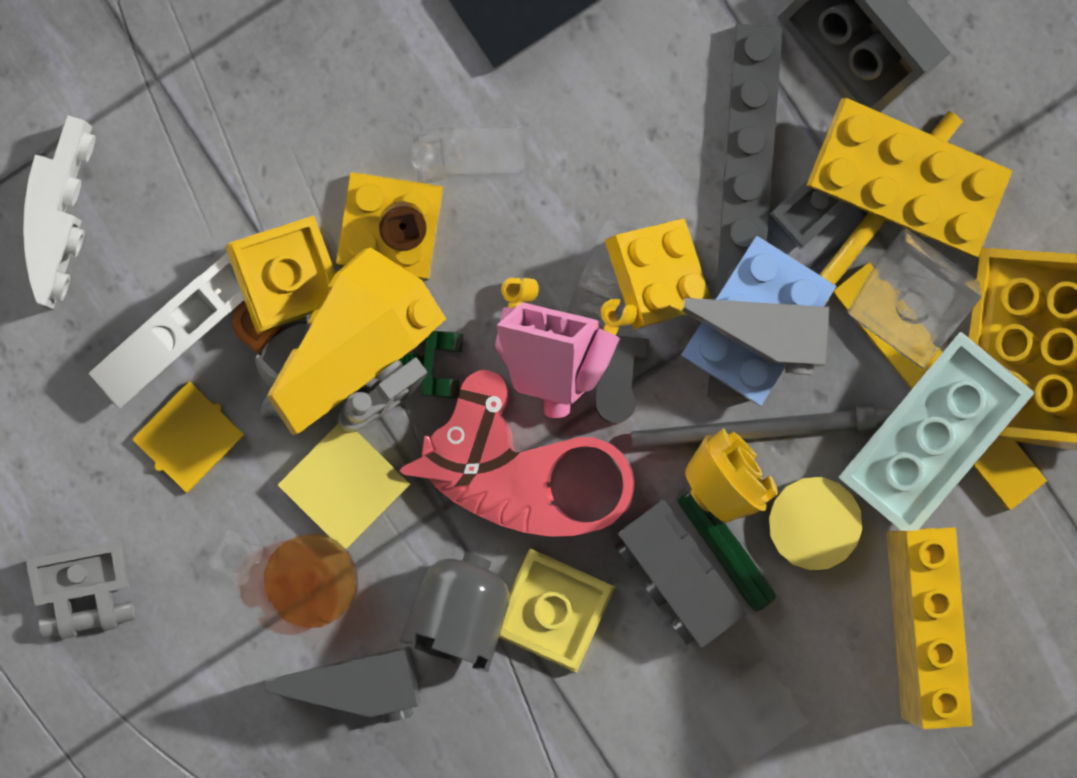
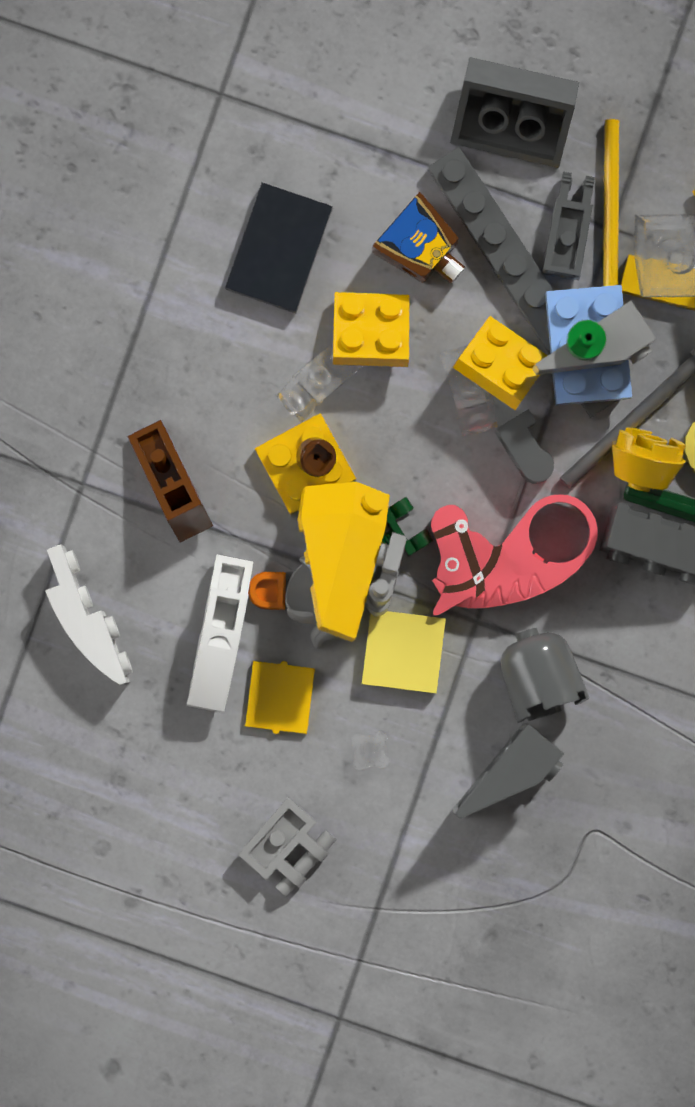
camera: 40 degrees left, 0 degrees up
(242, 142) = (170, 481): none -> reddish brown slope
(282, 273) = (262, 545): yellow tile -> none
(311, 580) = (429, 728): clear orange tile -> none
(554, 610) = (599, 627): light yellow tile -> none
(555, 142) = (371, 329): none -> yellow plate
(555, 351) = (474, 463): bright pink torso -> none
(669, 93) = (420, 243): none -> torso
(744, 321) = (579, 346): none -> green tile
(909, 177) = (613, 181): yellow plate -> none

